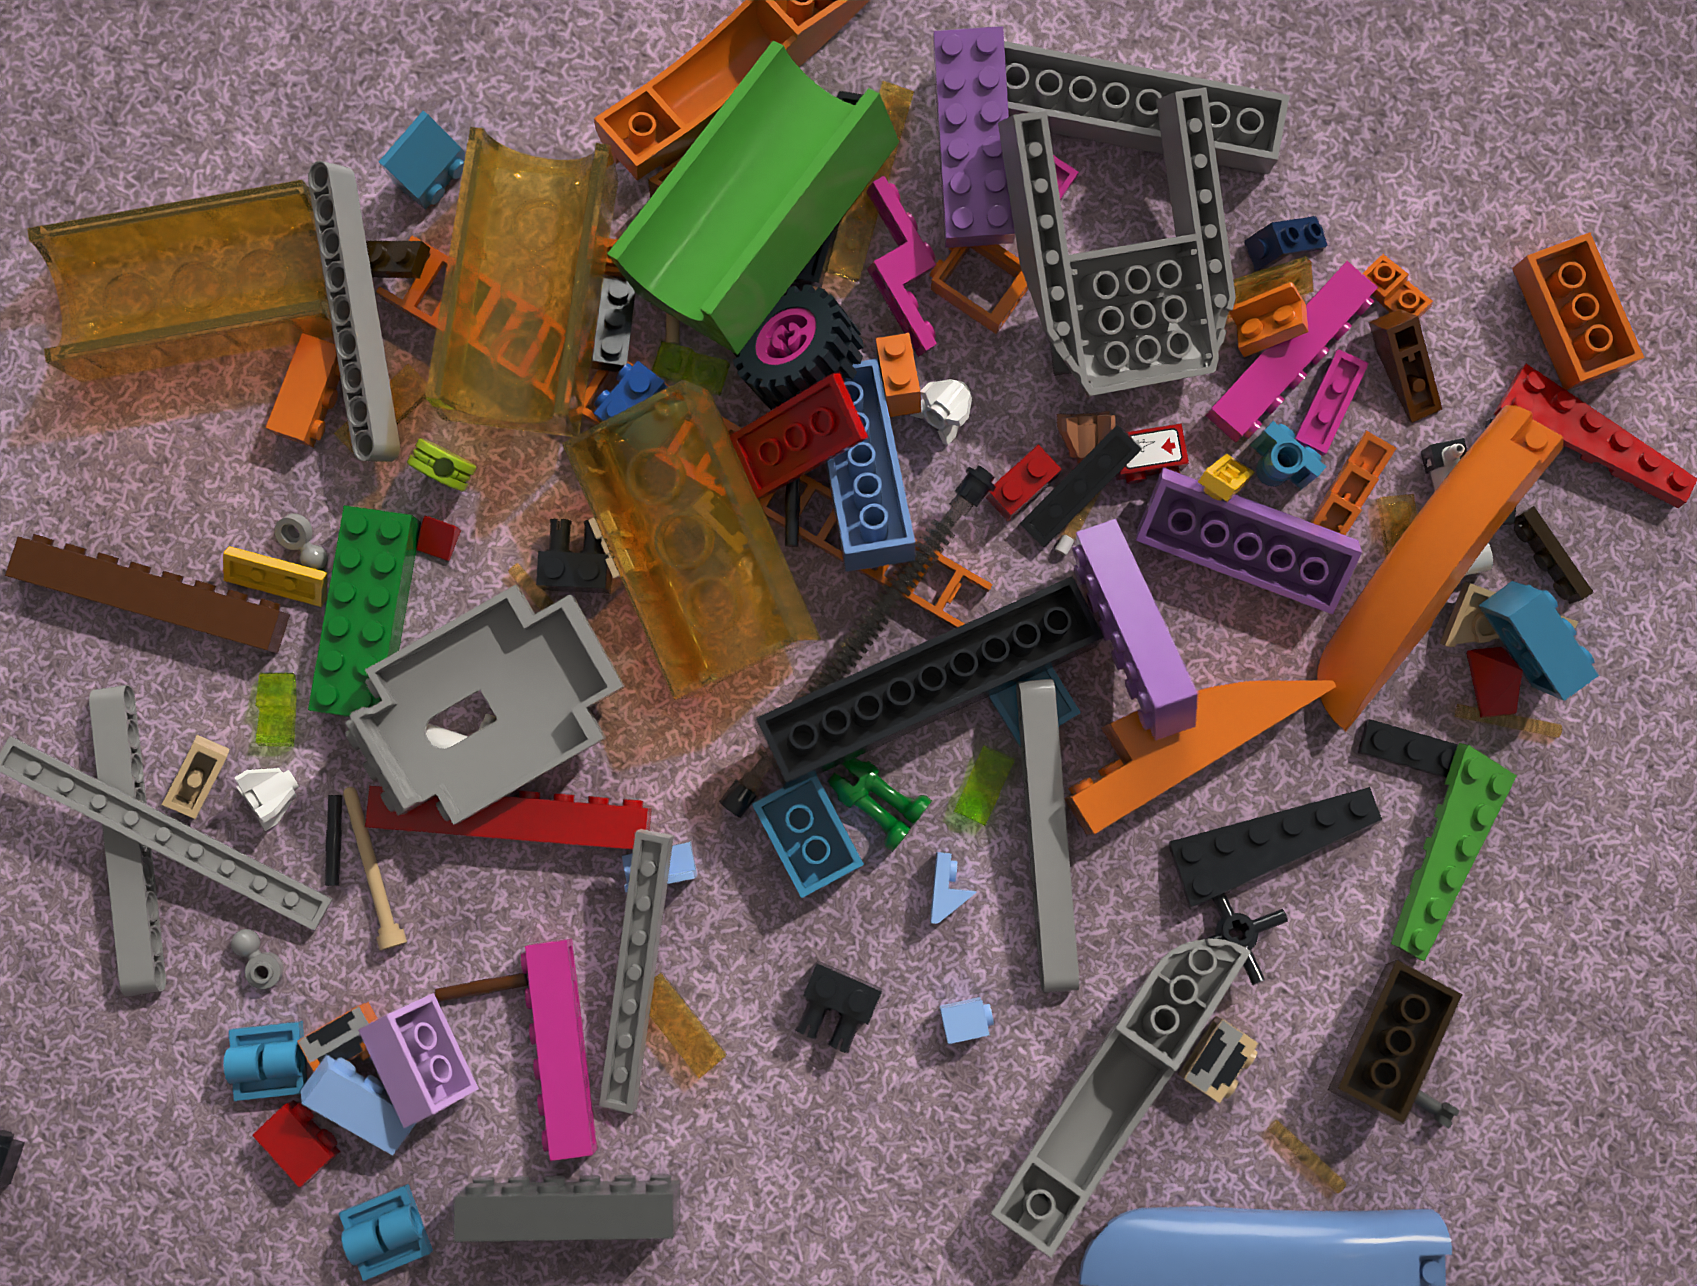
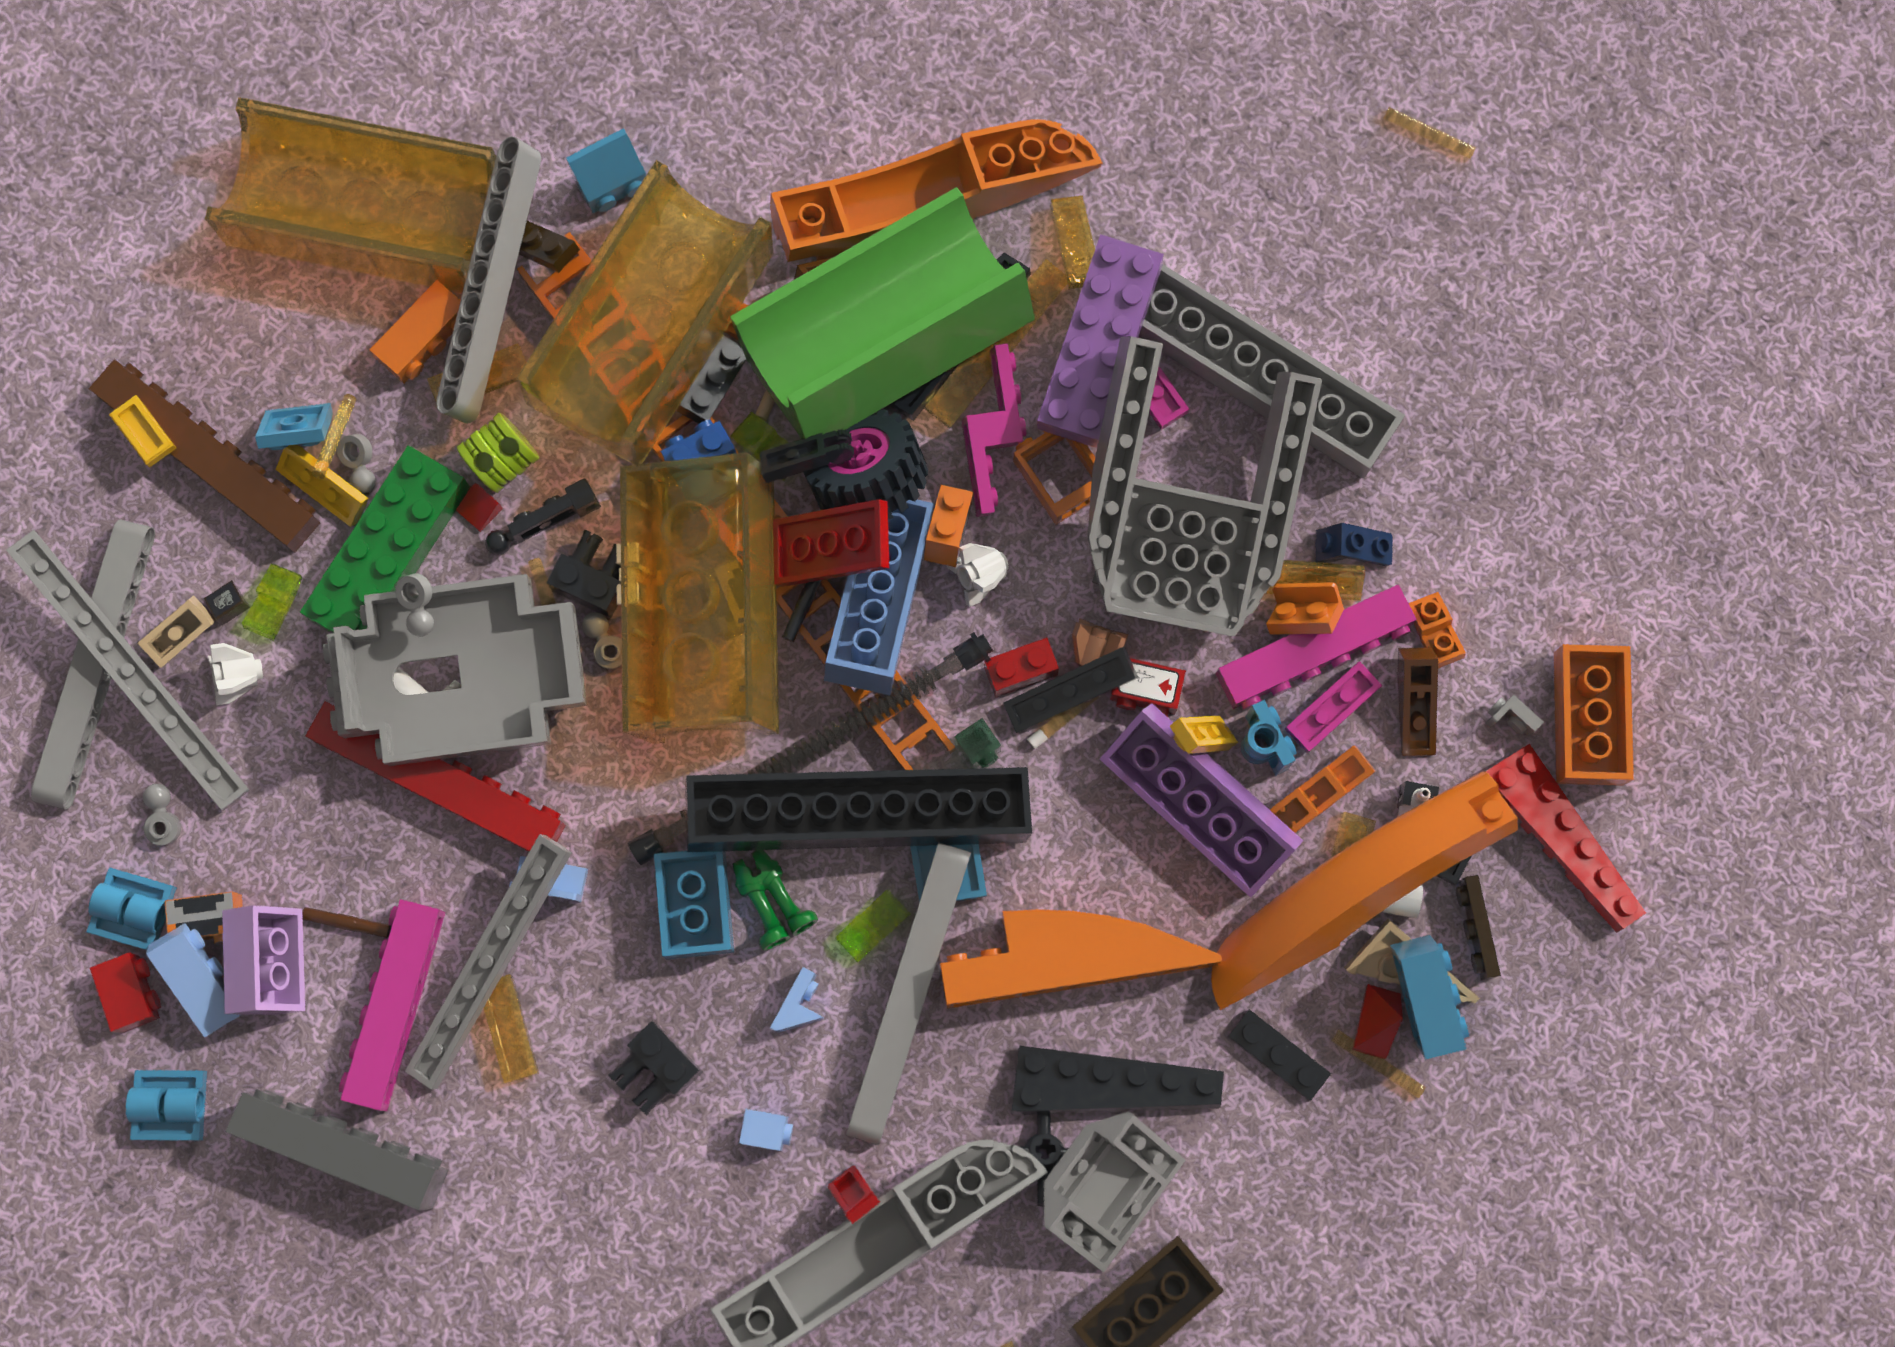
camera: 20 degrees right, 5 degrees down
(76, 596) = (142, 431): none -> yellow tile
(224, 531) = (294, 426): none -> dark azure plate
(232, 728) = (226, 603): none -> slope
(267, 526) = (334, 436): none -> clear yellow bar
(333, 840) = (272, 738): black piece -> none
(389, 934) = (286, 840): tan piece -> none
(426, 492) = (485, 462): none -> lime head
(430, 672) = (418, 621): none -> light grey plate
(531, 492) = (555, 509): none -> black plate
(601, 608) = (596, 626): none -> light grey plate
(738, 359) = (806, 455): none -> black hinge
(902, 52) = (1073, 238): none -> clear yellow plate
(1014, 573) = (978, 745): none -> clear green brick
(1076, 1047) = (853, 1194): none -> red tile
(1135, 630) = (1058, 836): medium lavender brick -> none
(1219, 1059) = (980, 1262): brick -> none
(1309, 940) = (1107, 1186): none -> light grey slope
(1463, 822) = (1295, 1139): bright green wing -> none
(1507, 340) = (1520, 716): none -> light grey bracket

